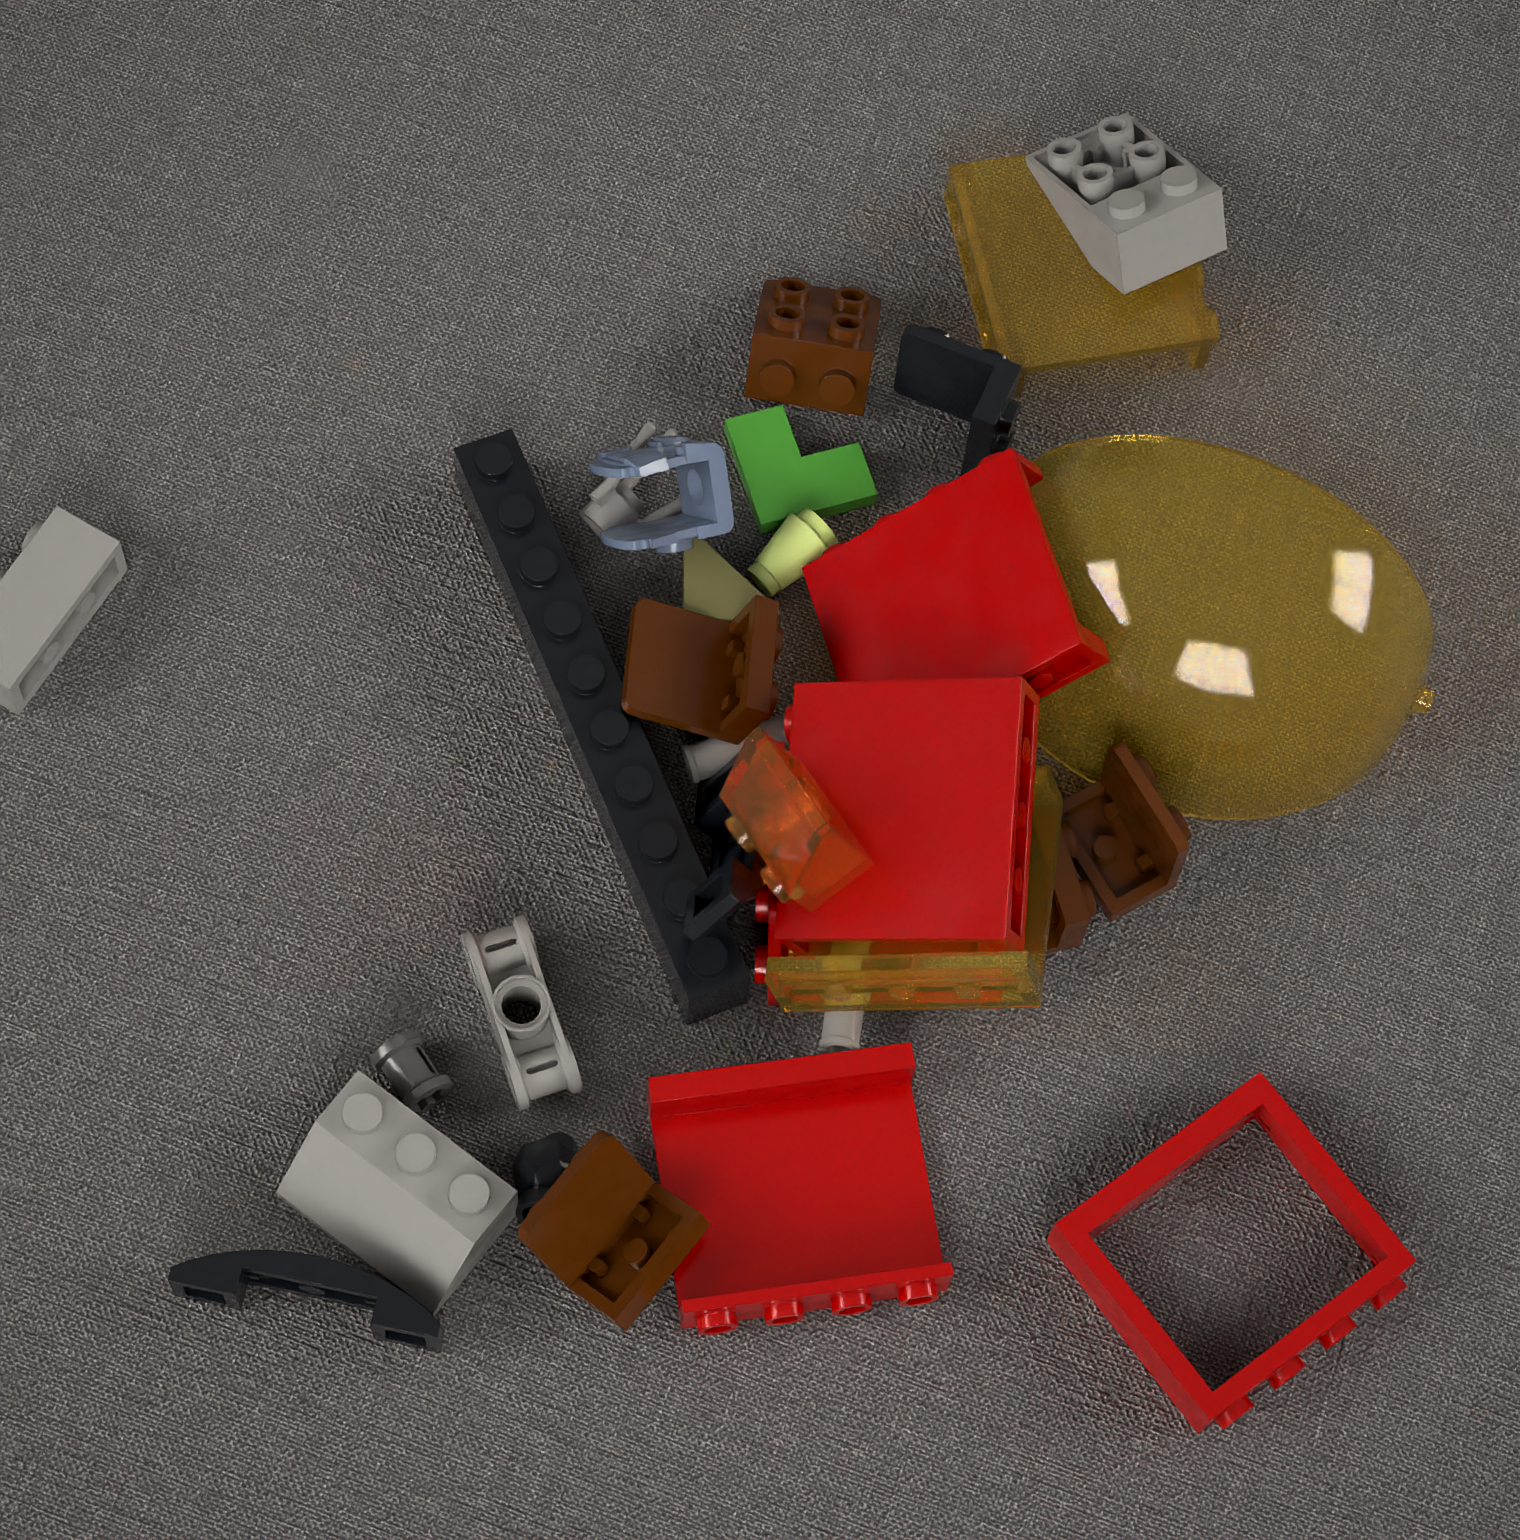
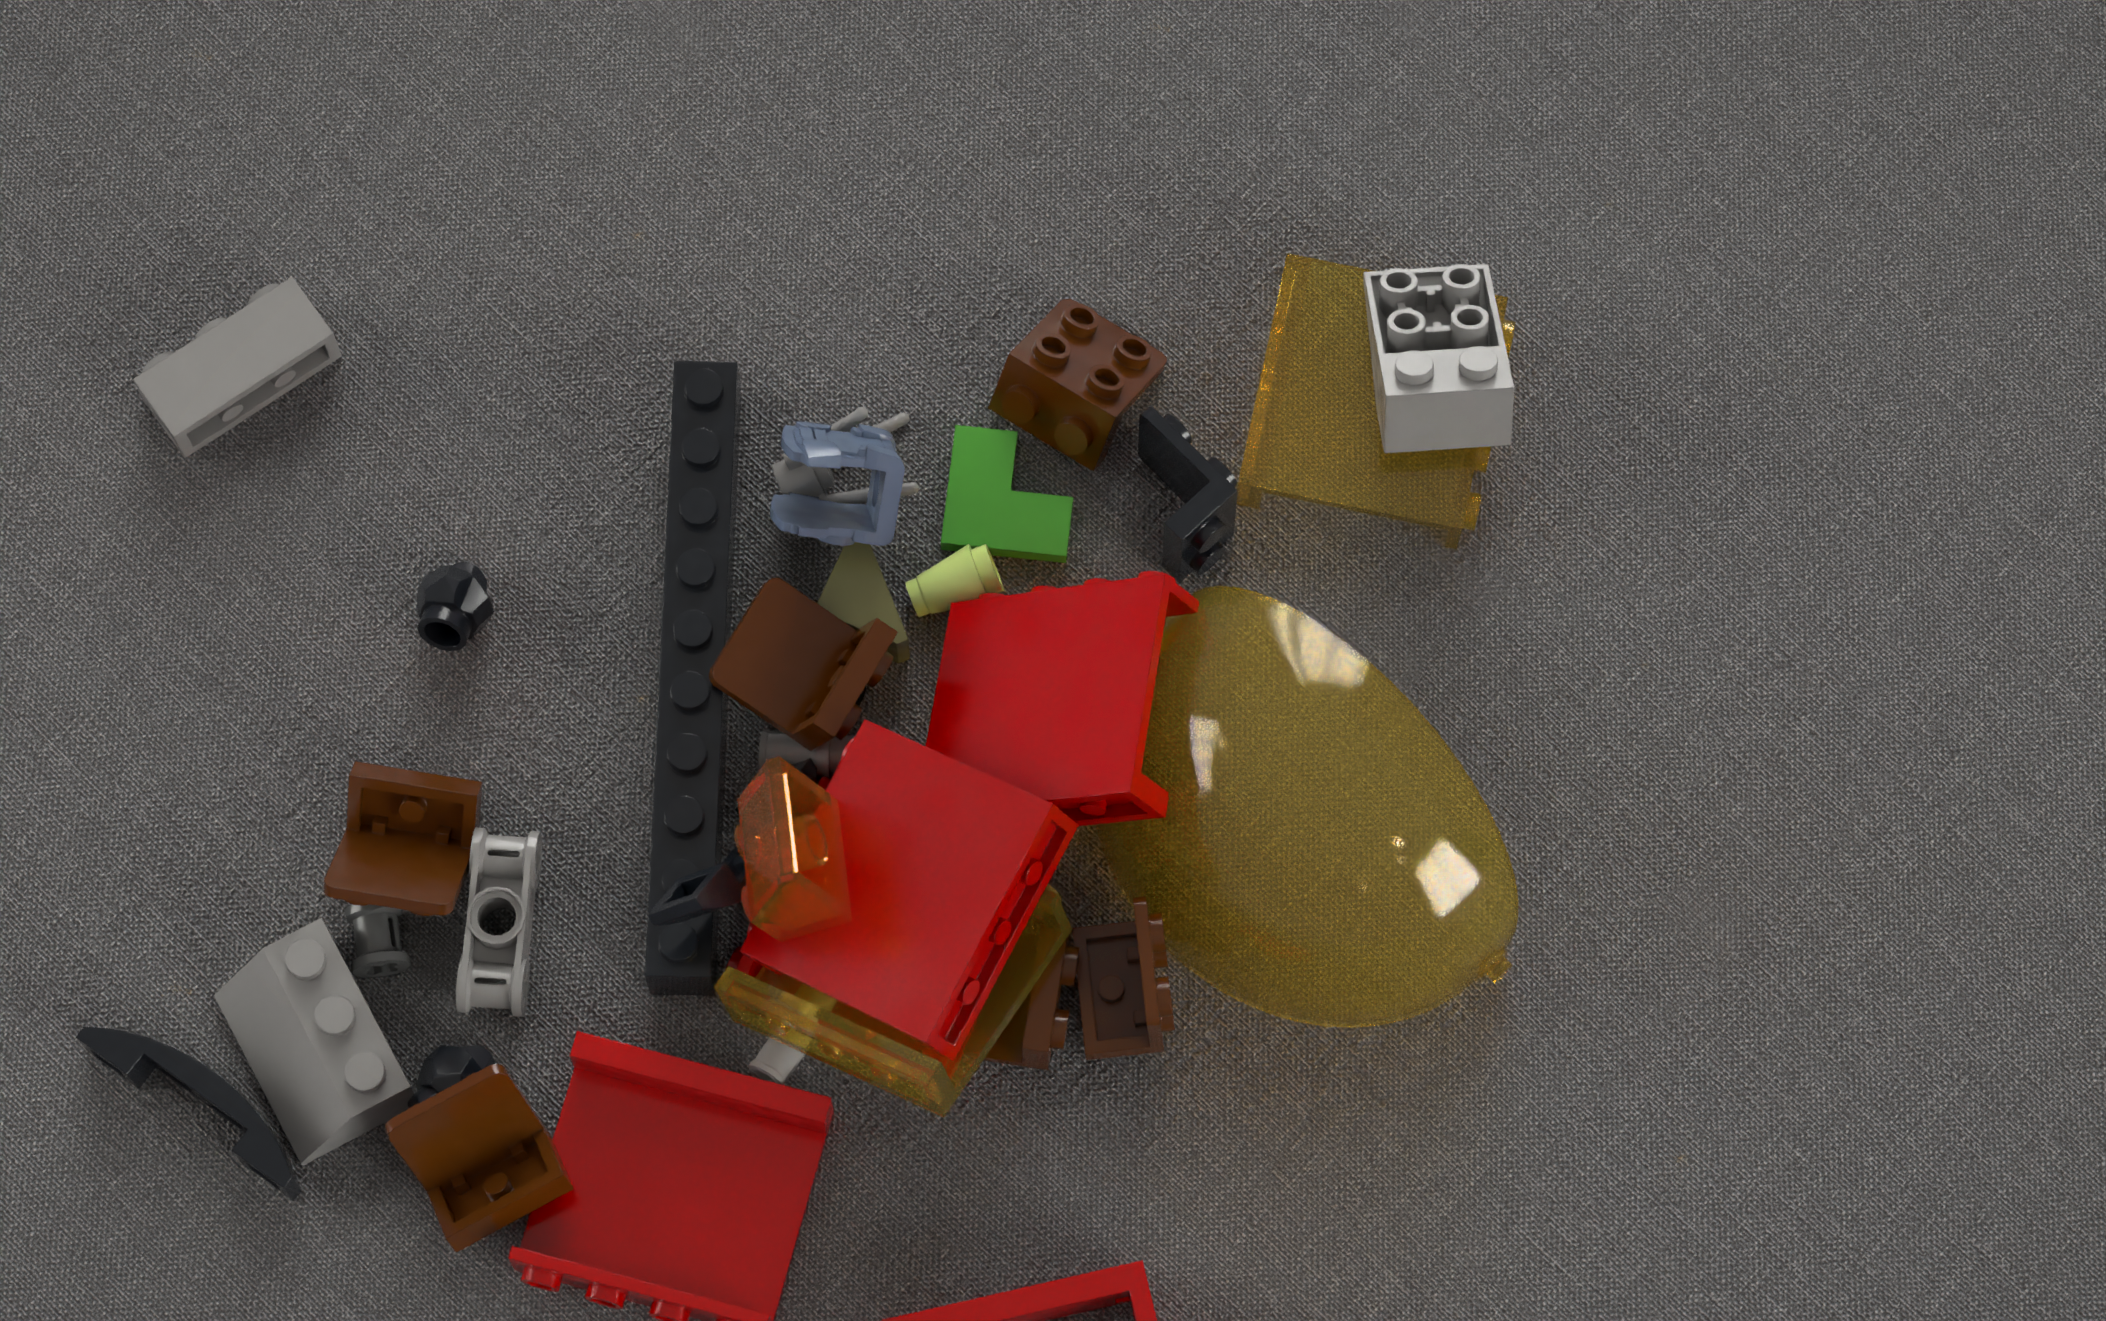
camera: 30 degrees right, 5 degrees up
(342, 746) = (453, 605): none -> black rock
(400, 969) = (405, 839): none -> reddish brown bracket

